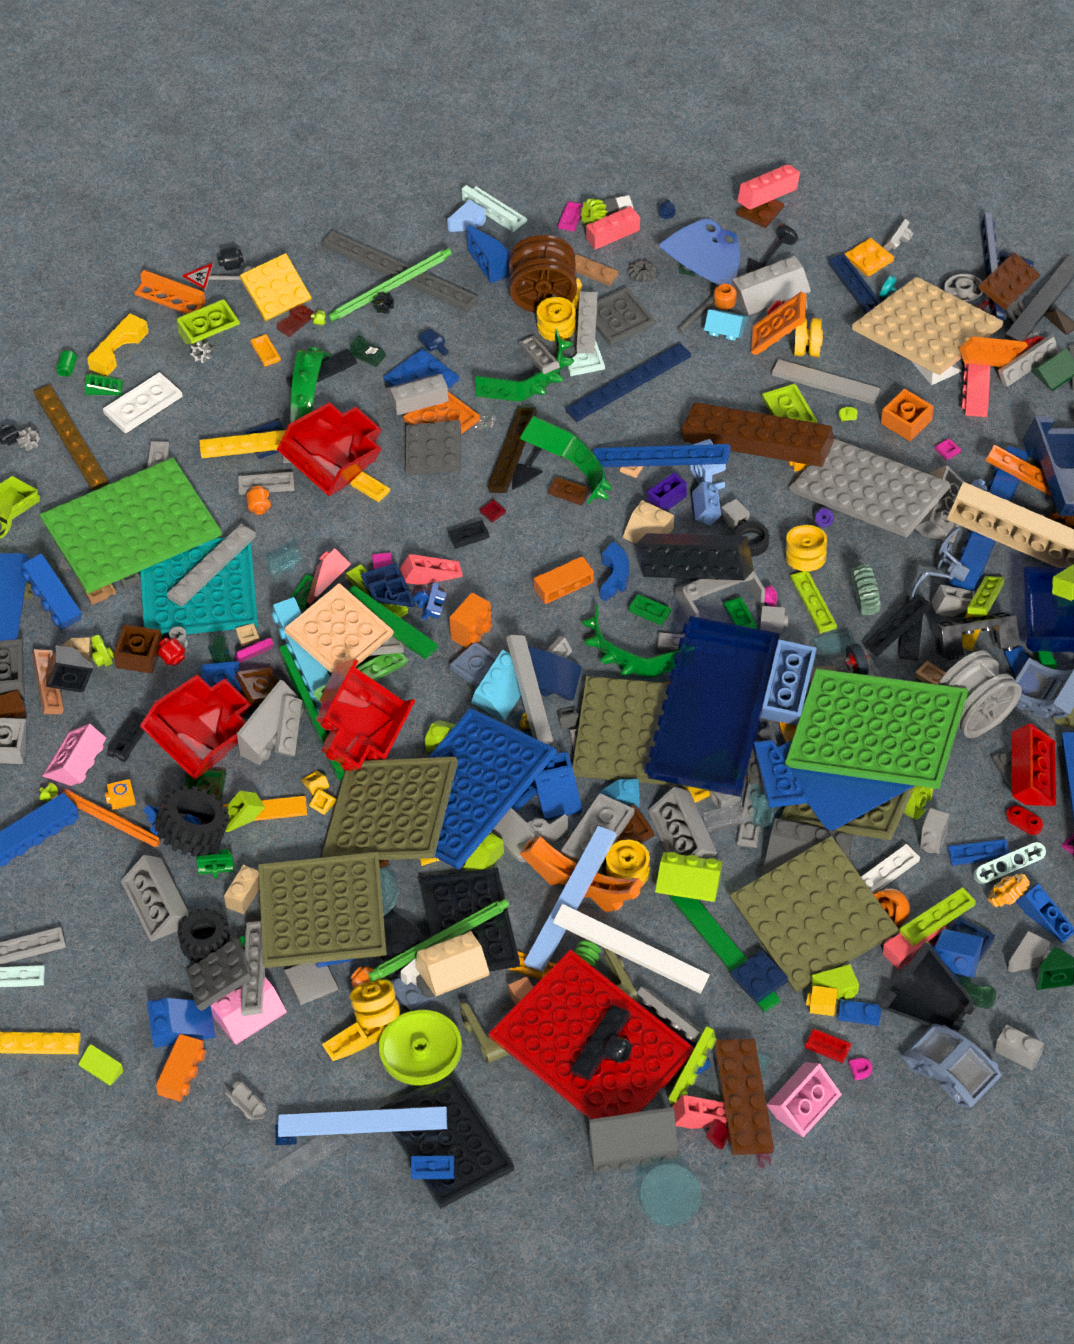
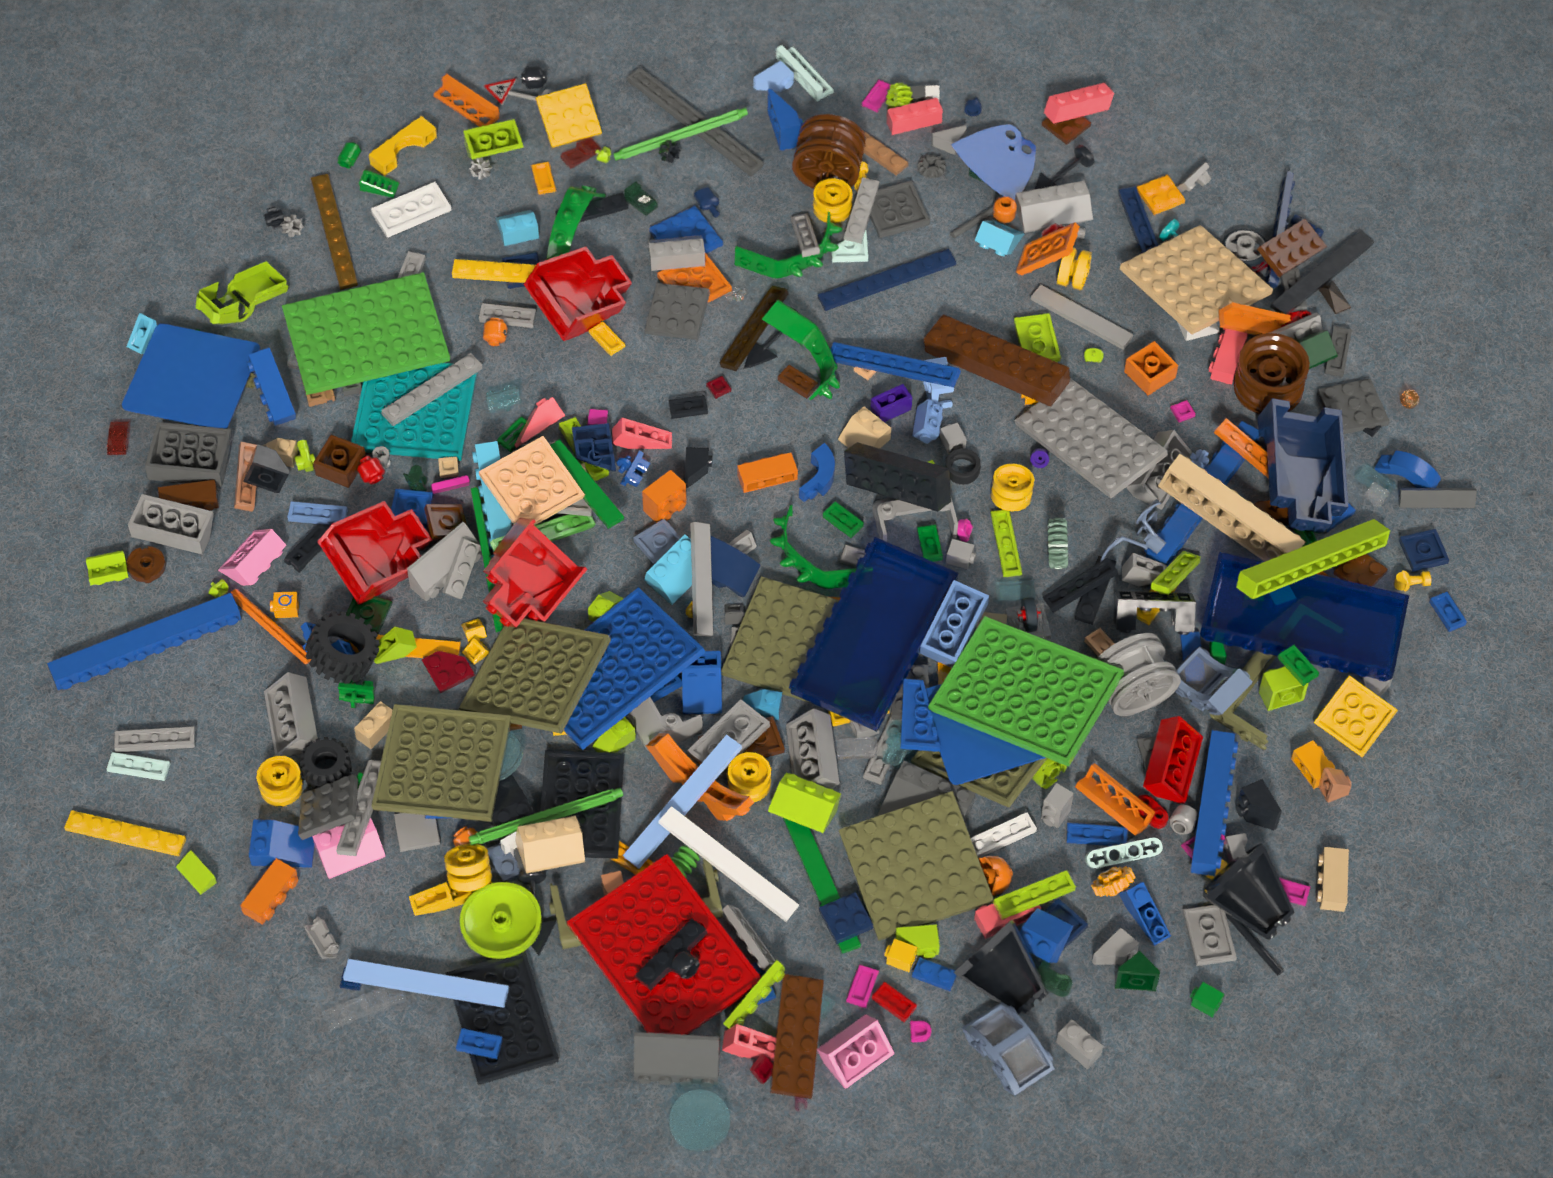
camera: 10 degrees right, 5 degrees up
(127, 703) = (316, 513): none -> medium blue plate
(162, 960) = (279, 781): none -> yellow wheel
(254, 400) = (518, 227): none -> medium azure slope
(299, 824) = (447, 669): none -> dark red plate
(440, 1002) = (546, 927): none -> black piece
(492, 584) = (696, 464): none -> black slope
(650, 243) = (945, 138): none -> light grey slope
(792, 1038) = (862, 986): none -> dark pink tile
(989, 822) = (1113, 803): none -> orange fence
(1021, 392) = (1269, 369): none -> reddish brown wheel
(1058, 820) = (1184, 819): none -> light grey head

